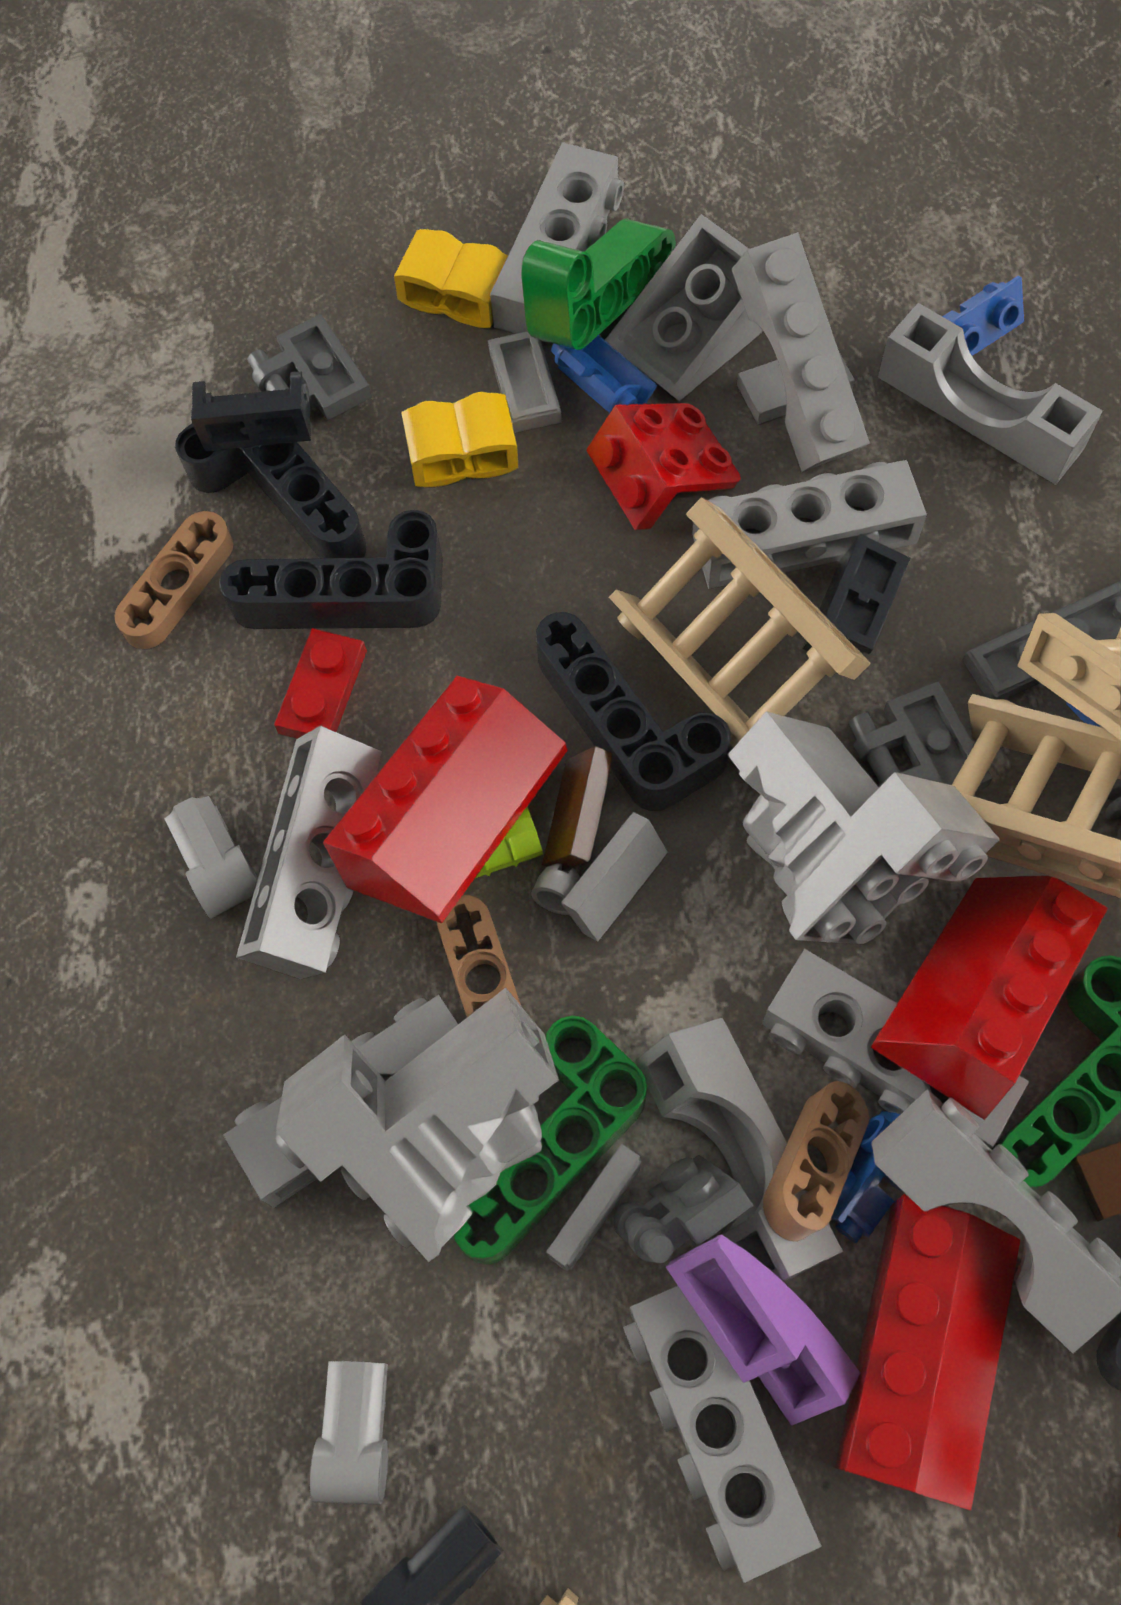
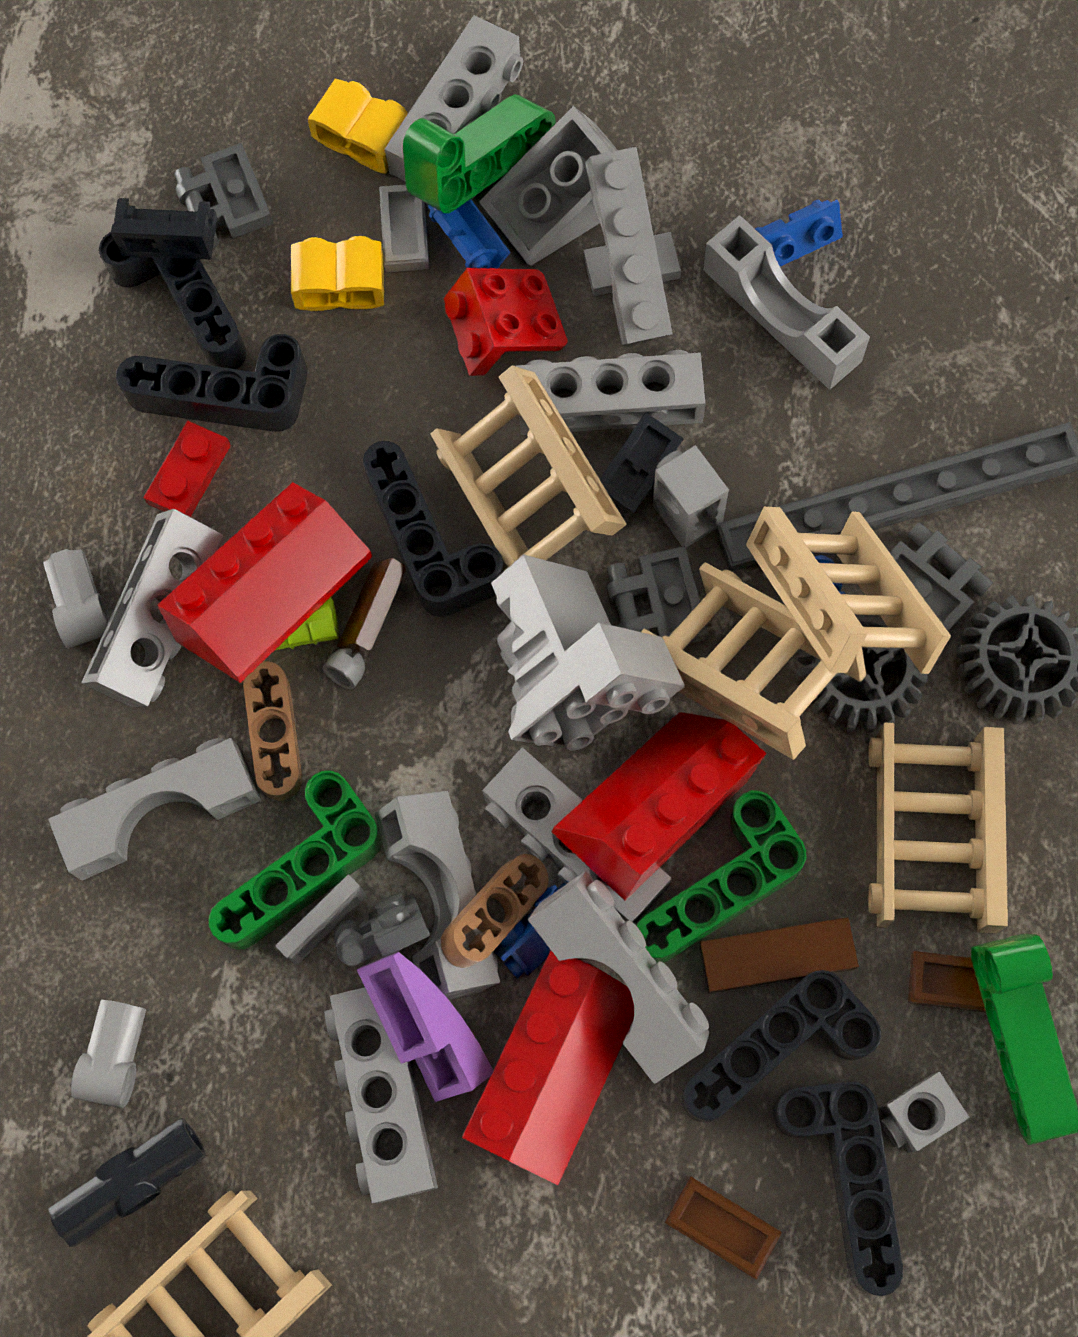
camera: 10 degrees right, 5 degrees up
(175, 555) = (84, 379): medium nougat beam -> none
(432, 1129) = (203, 842): light grey brick -> none
(615, 876) = (390, 665): light grey tile -> none
(935, 619) = (689, 495): none -> light grey brick

